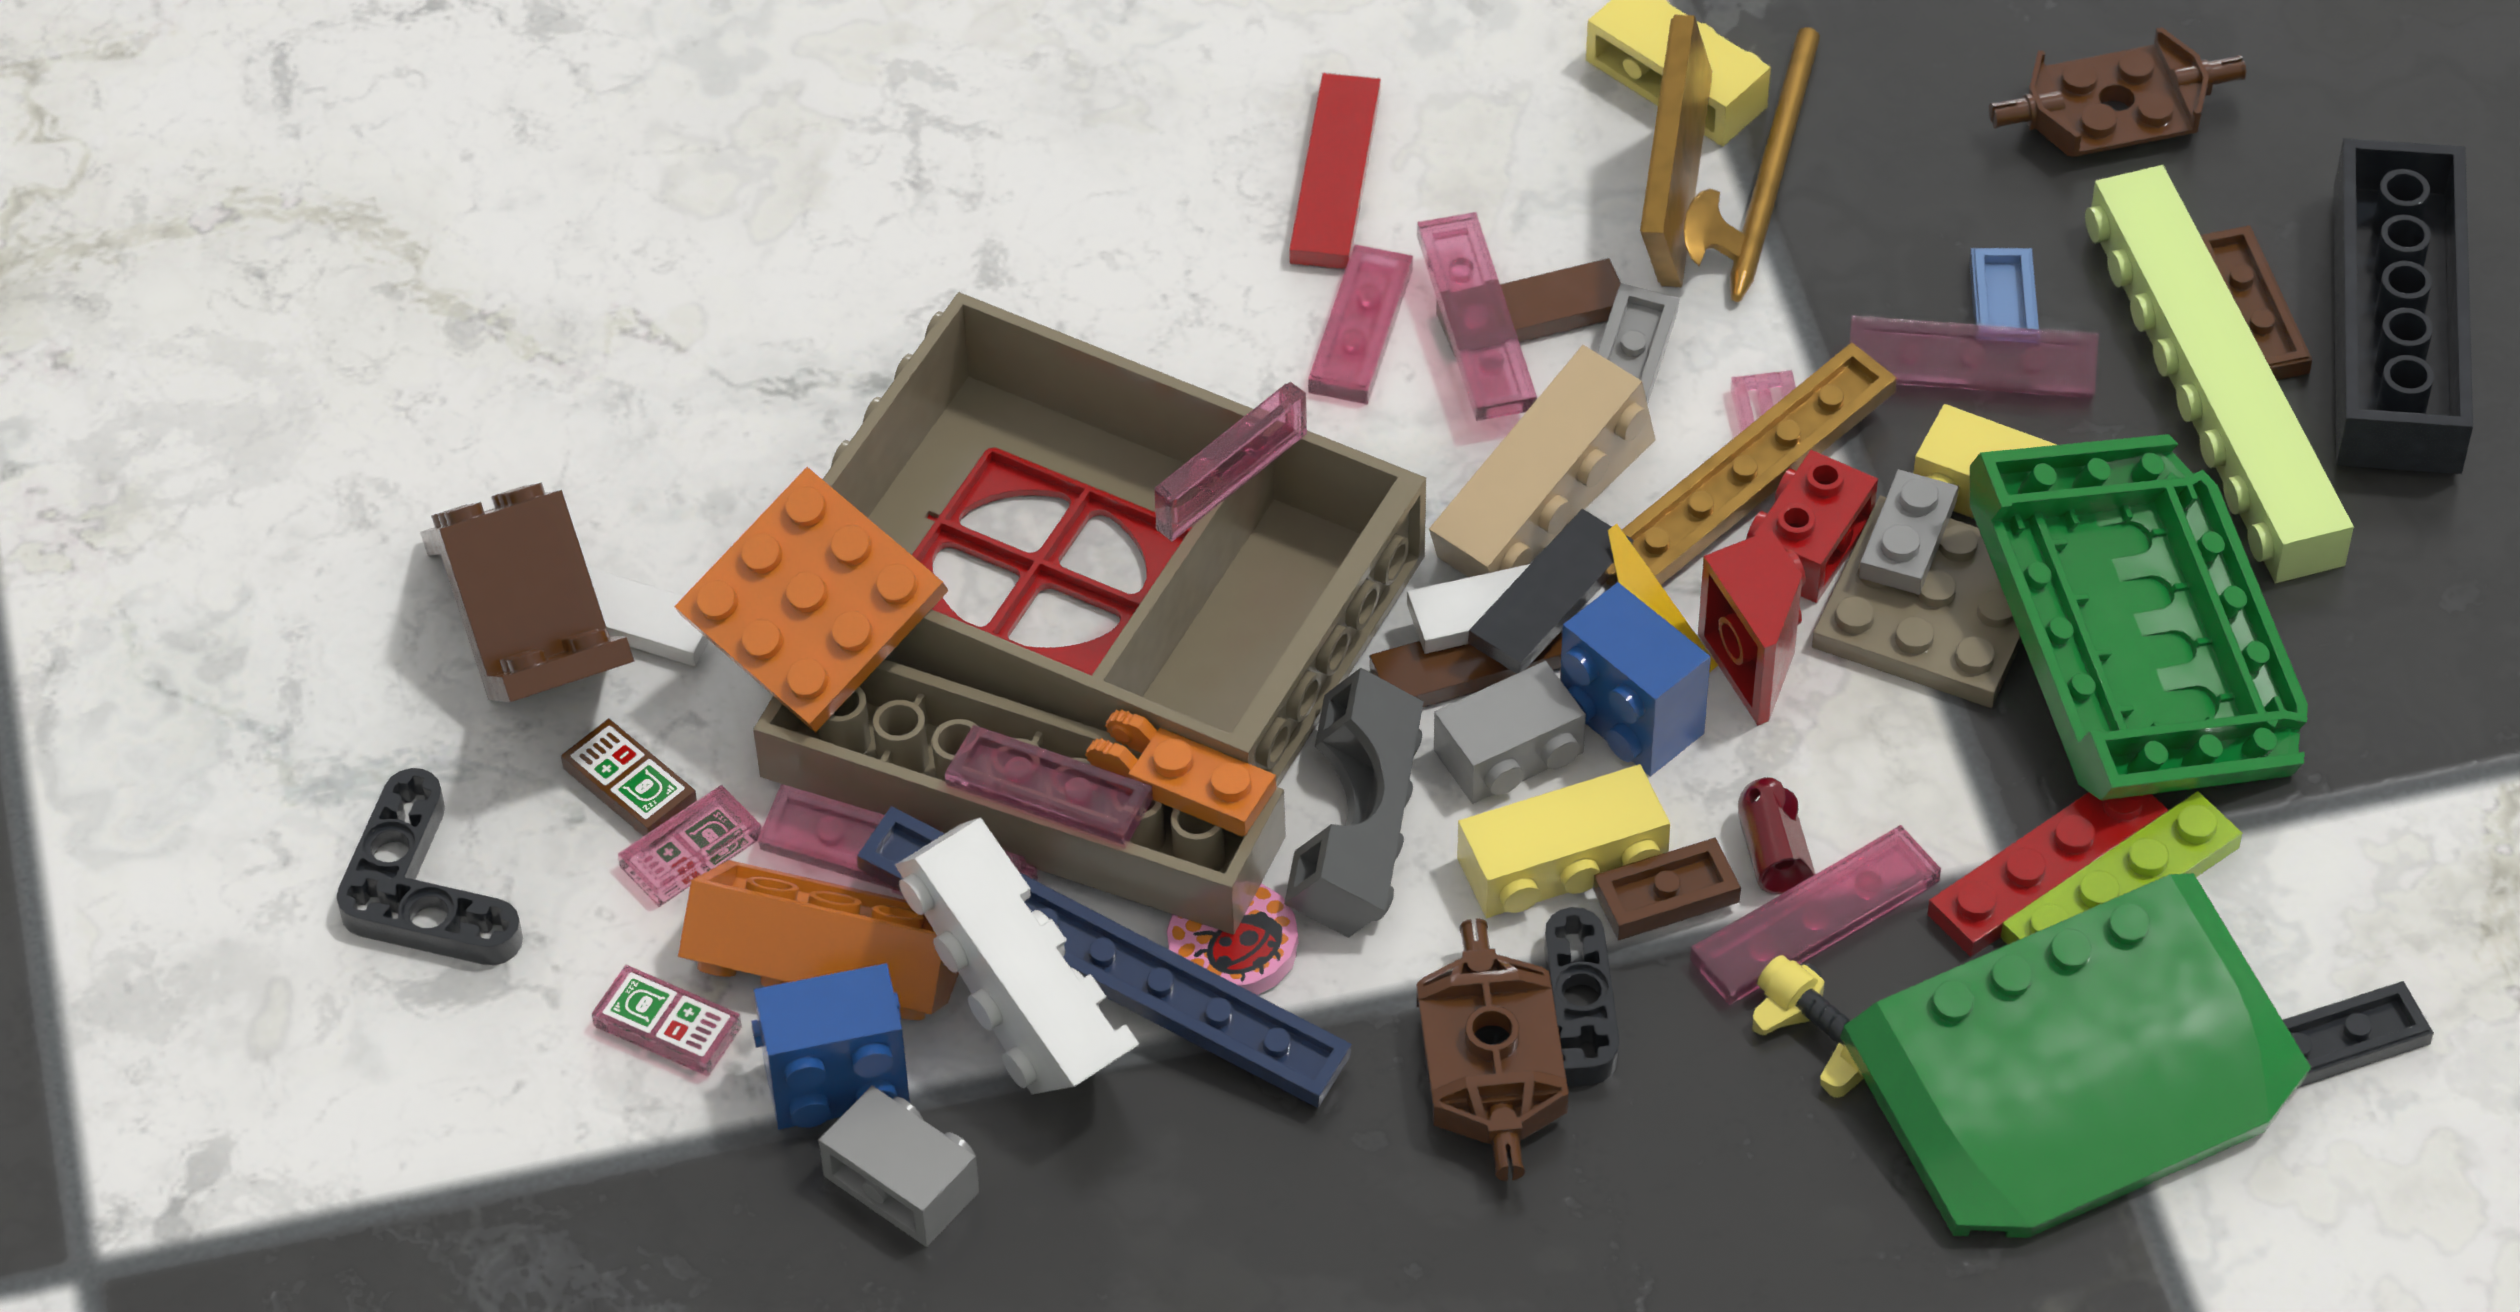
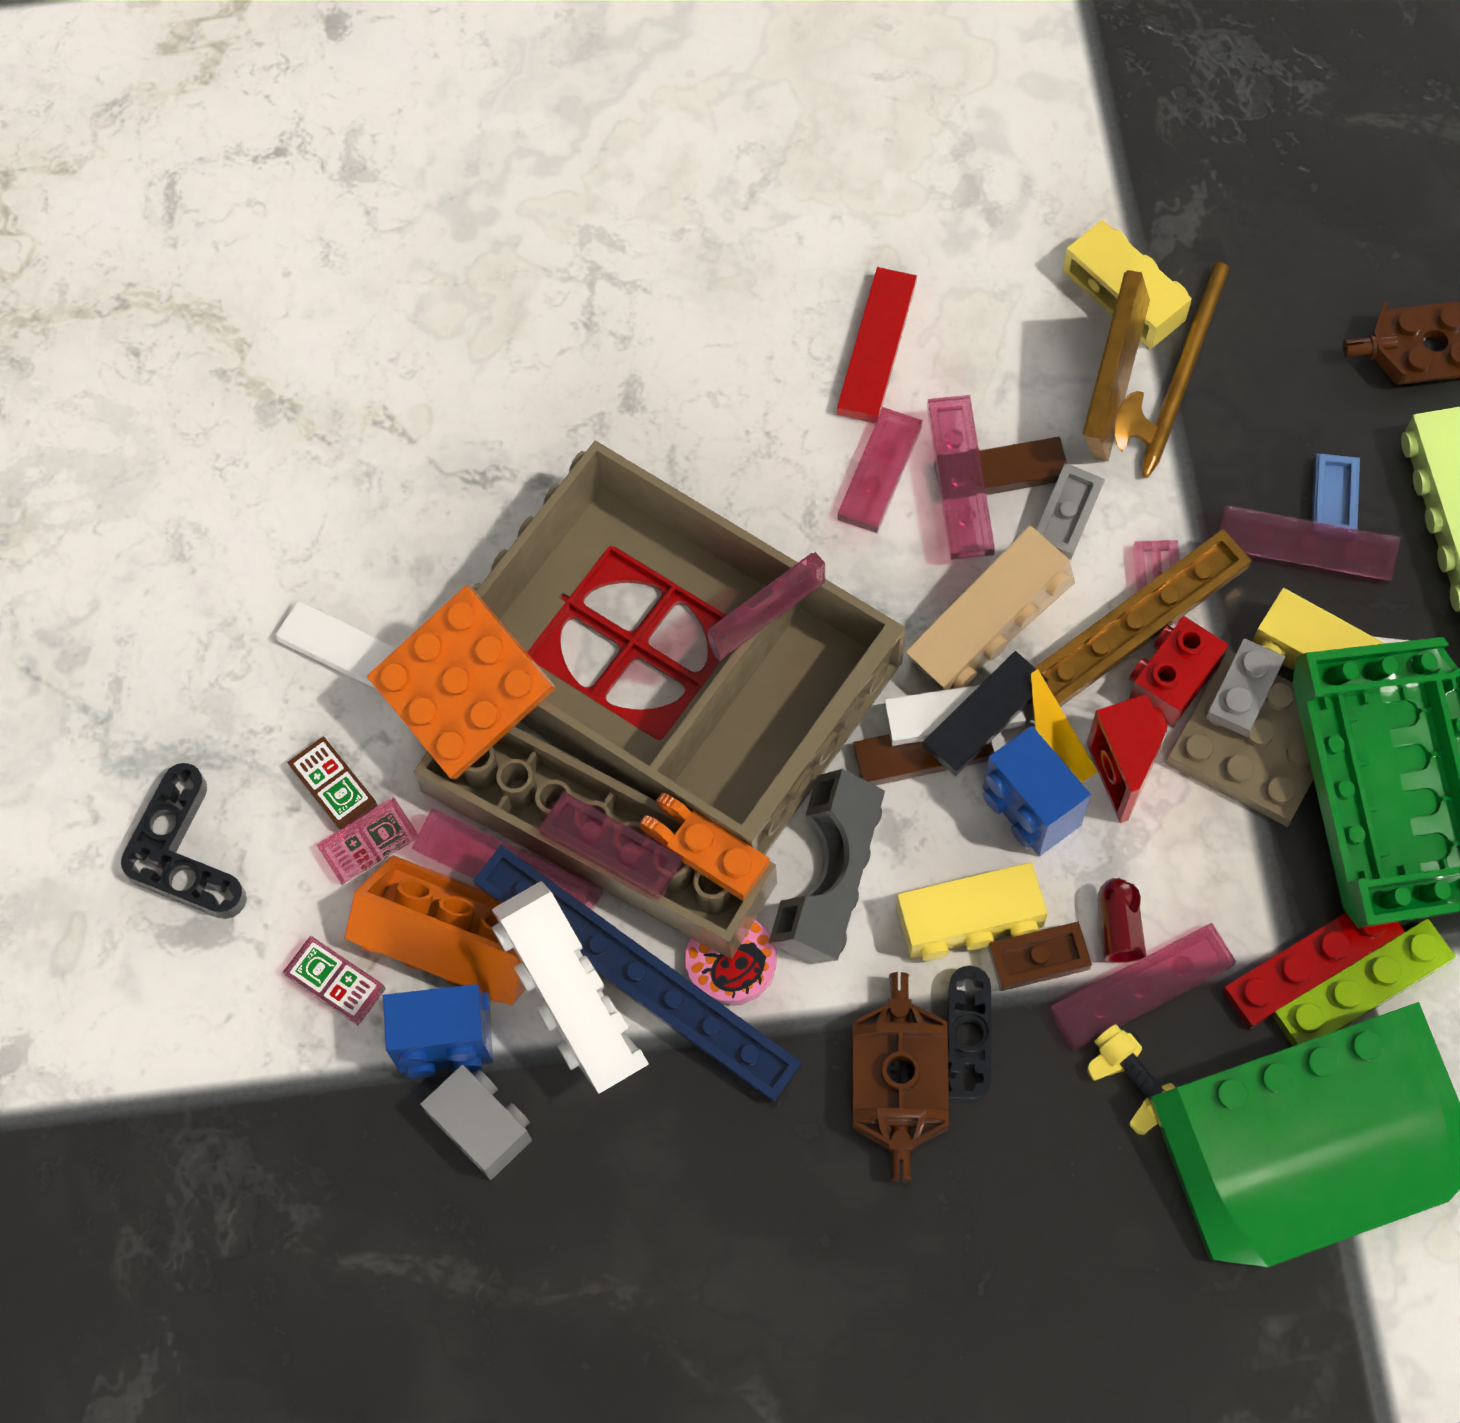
camera: 10 degrees right, 15 degrees up
(524, 593) = (271, 645): reddish brown bracket -> none
(1509, 732) = (944, 818): light grey brick -> none

